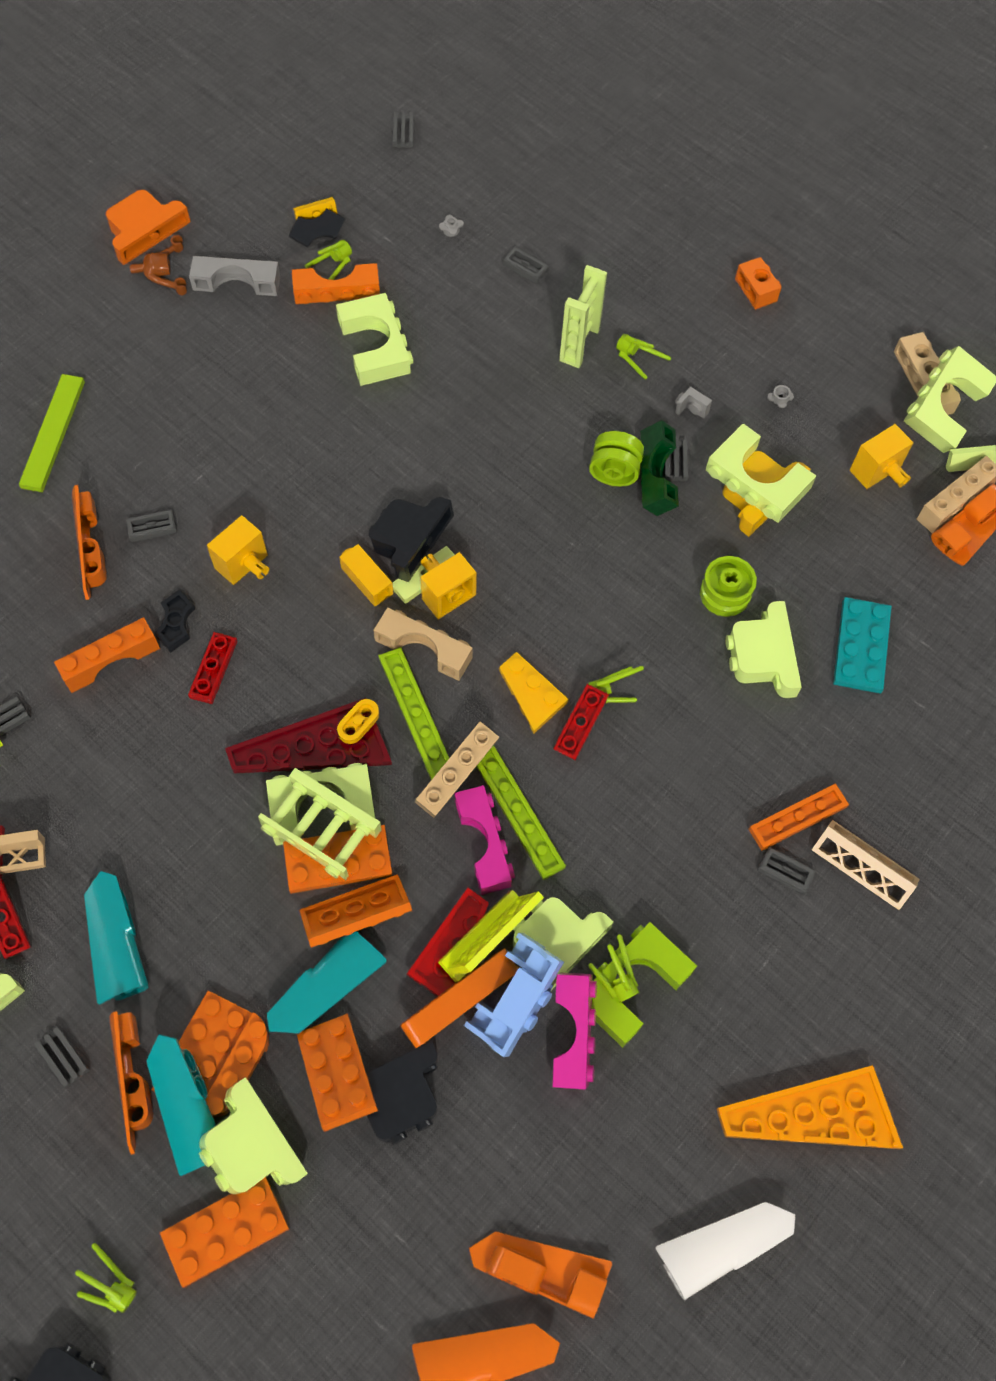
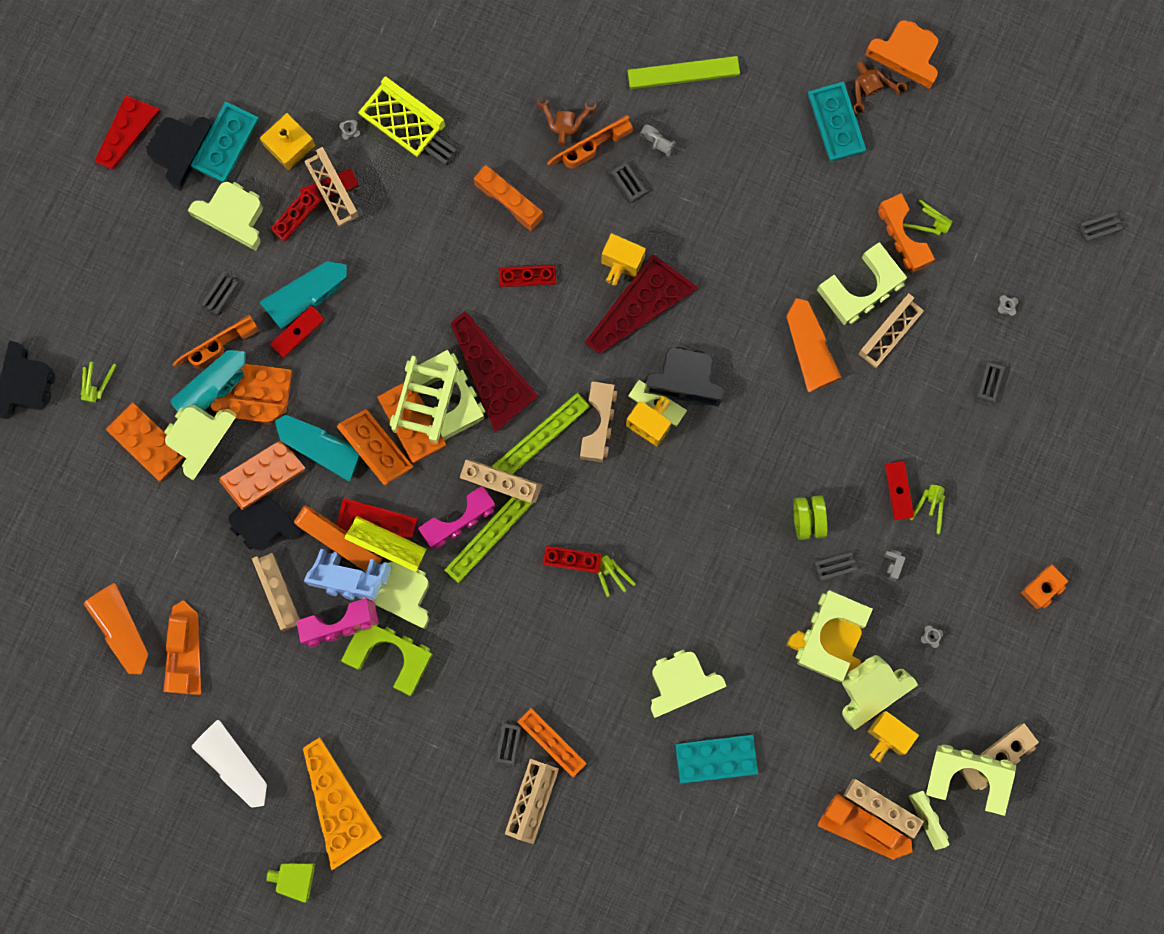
camera: 75 degrees right, 15 degrees up
(44, 566) = (565, 120): none -> dark orange piece
(116, 479) = (660, 143): none -> light grey connector
(155, 952) = (306, 323): none -> red tile
(173, 629) = (563, 231): black tile -> none
(183, 307) = (836, 121): none -> teal plate
(211, 272) = (877, 127): light grey arch -> none
(299, 554) = (645, 298): none -> dark red wing
(310, 229) = (964, 202): black tile -> none
(315, 209) = (975, 191): yellow tile -> none
(356, 721) = (514, 398): yellow plate -> none
(366, 575) = (640, 358): yellow brick -> none
(414, 403) = (810, 345): none -> orange panel
(433, 335) = (894, 317): none -> tan fence
(502, 1105) = (276, 591): none -> tan fence
(534, 693) = (588, 515): yellow wing -> none
(582, 316) = (919, 445): yellowish green fence -> none
(613, 375) = (897, 478): none -> red tile
(626, 985) = (376, 646): lime plant -> none
(657, 492) = (836, 546): dark green arch -> none
(728, 586) = (738, 638): lime wheel -> none
(826, 456) = (873, 689): none -> yellowish green brick
(904, 1206) = (293, 880): none -> lime torso

